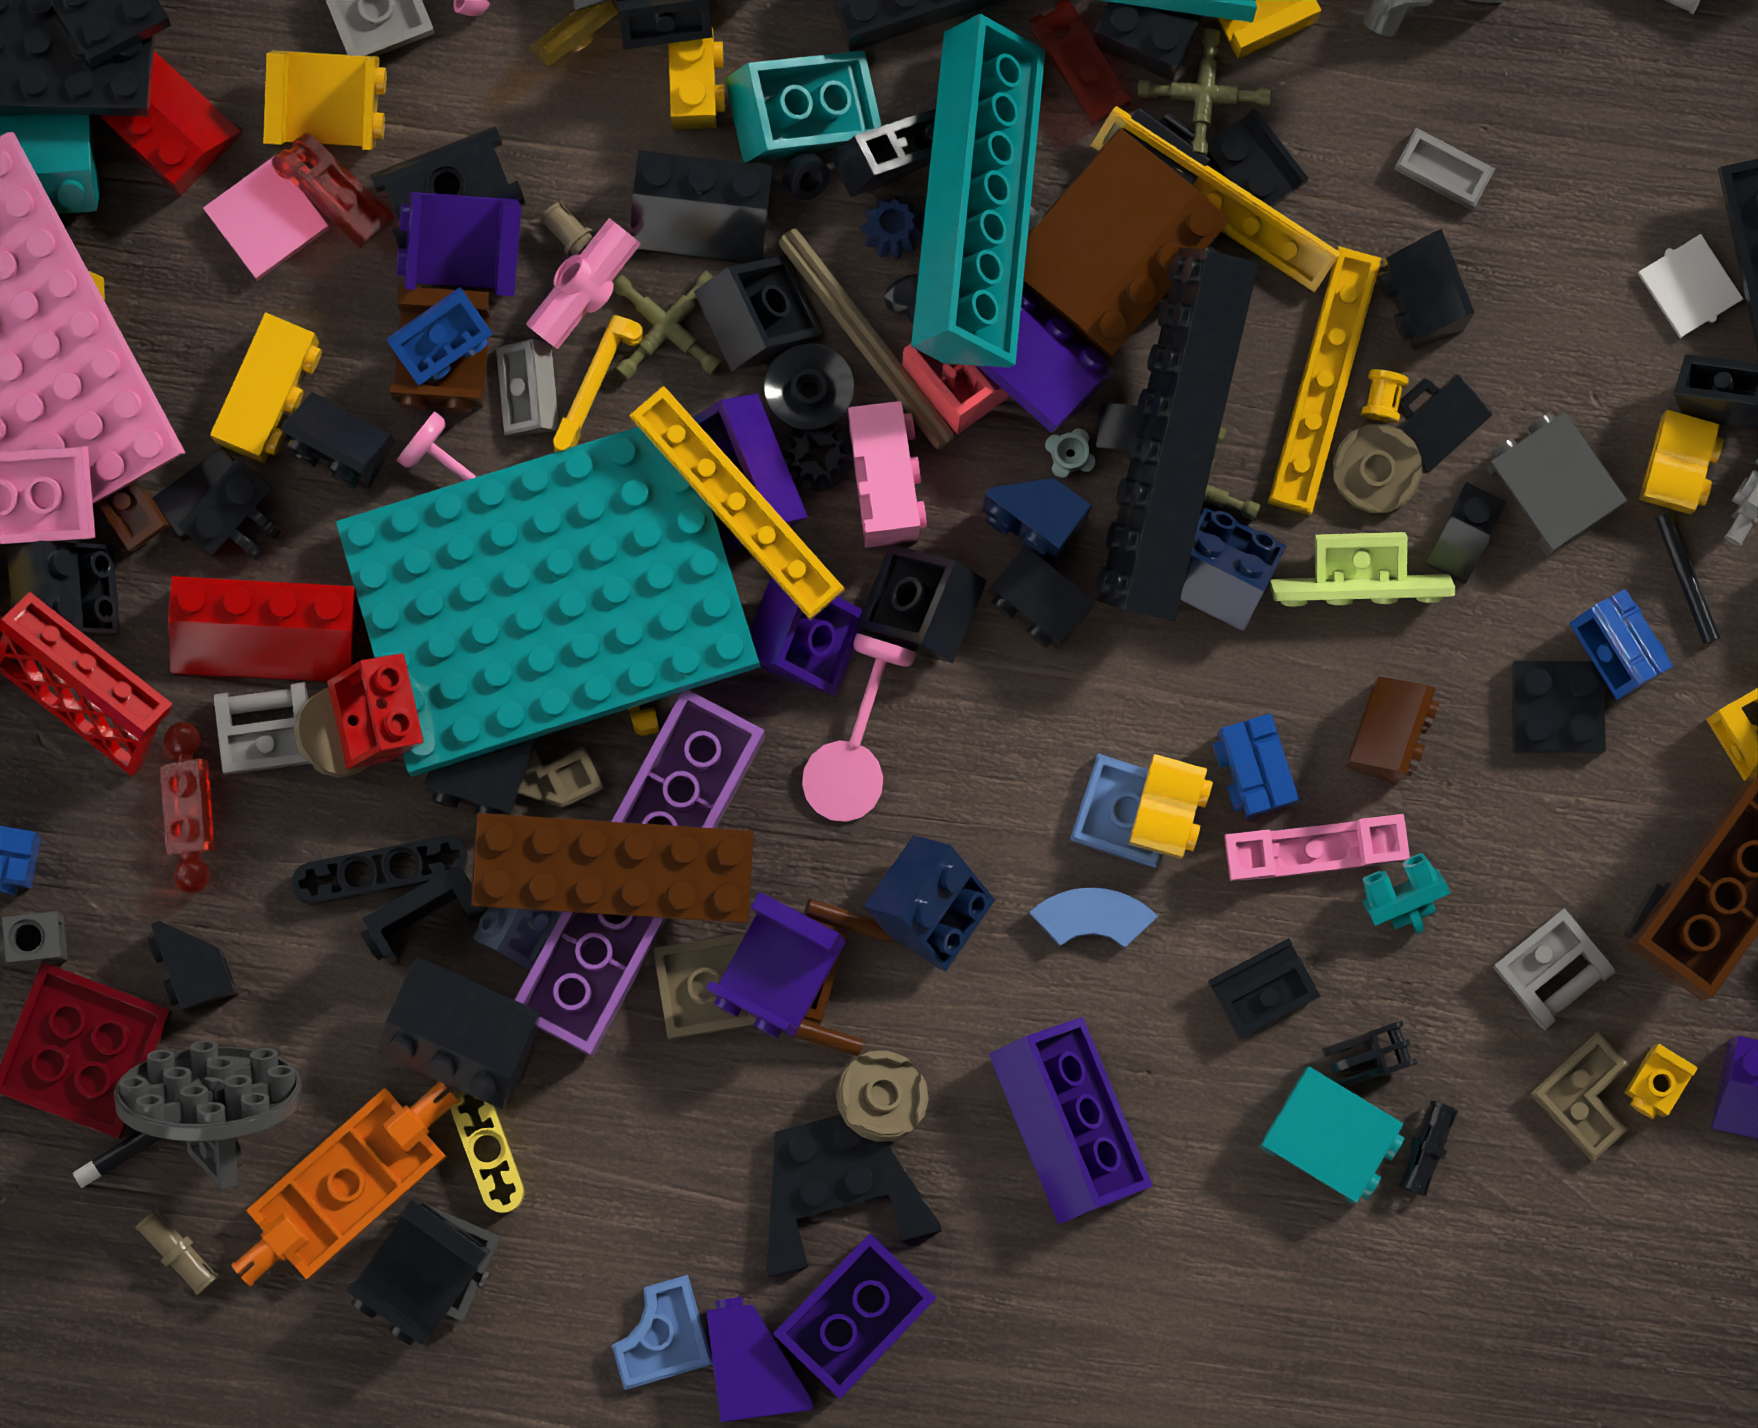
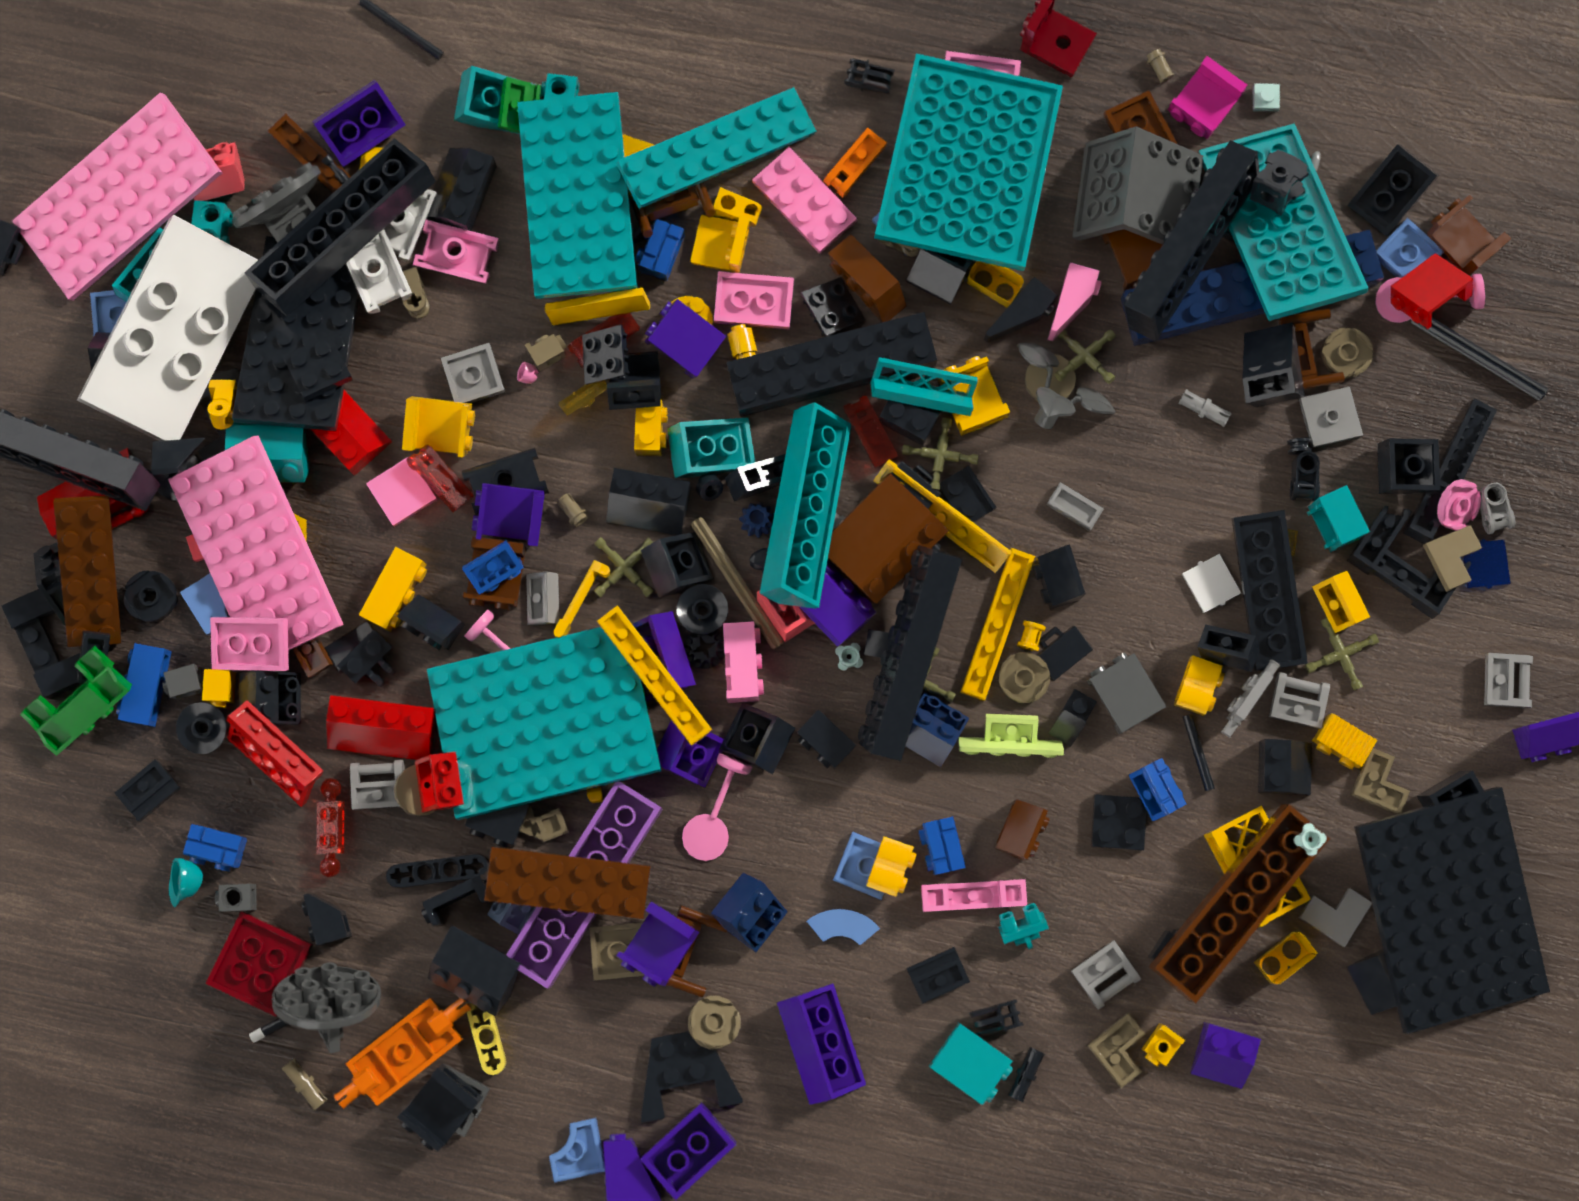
camera: 10 degrees right, 0 degrees up
(583, 283) = (577, 541): bright pink piece -> none
(1038, 513) = (828, 691): dark blue slope -> none

